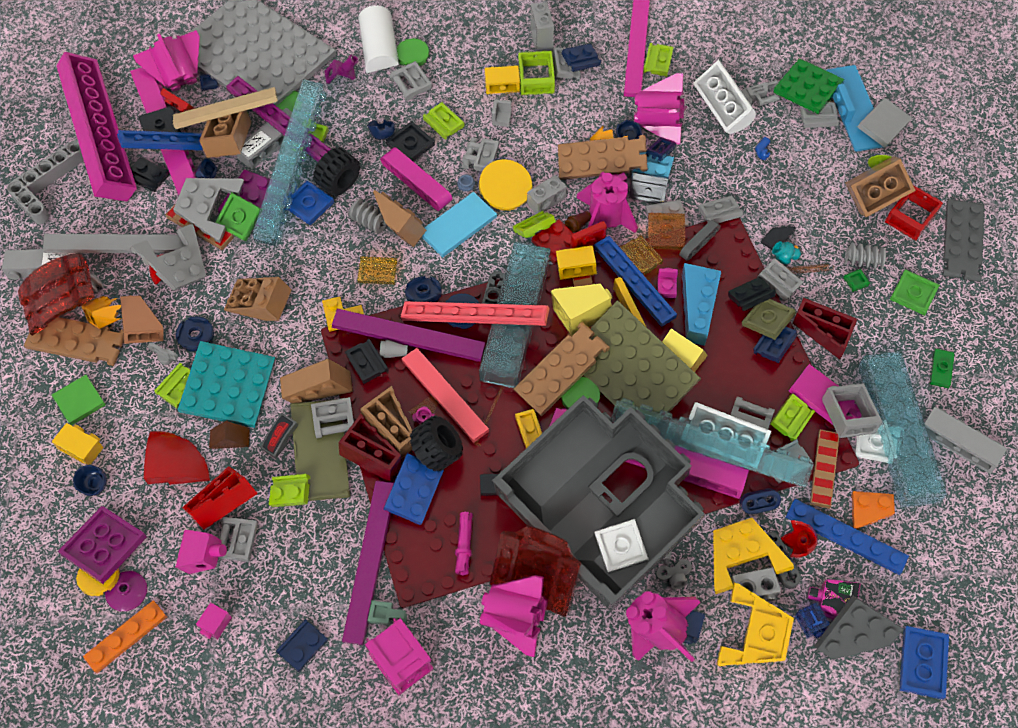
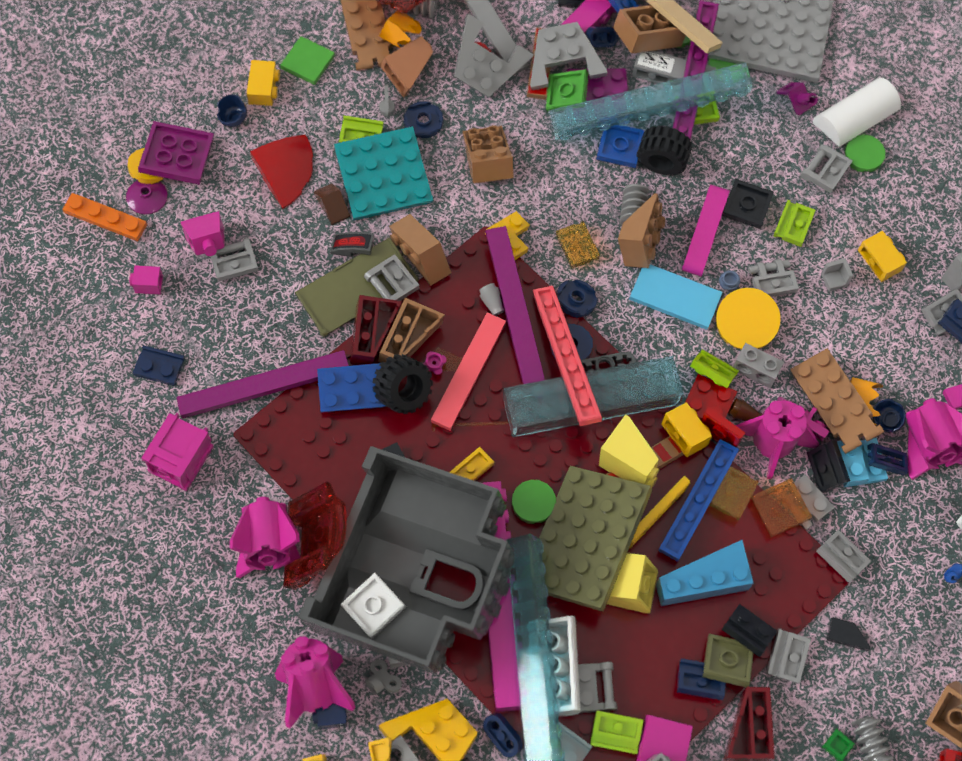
camera: 60 degrees right, 5 degrees up
(219, 498) = (262, 223): red wedge -> none
(289, 490) = (300, 280): lime plate -> none
(366, 361) = (467, 281): black plate -> none
(381, 131) = (745, 169): dark blue hair -> none
(383, 613) = (218, 420): sand green plate -> none
(463, 550) = (307, 463): dark pink pin -> none
(536, 85) = (897, 296): lime window -> none
(561, 369) = (549, 467): medium nougat hinge -> none
(667, 282) = (714, 535): dark pink bracket -> none
(699, 240) = (788, 547): dark grey beam -> none
(785, 252) = (829, 648): teal animal -> none
(809, 268) = (838, 702): nougat piece -> none

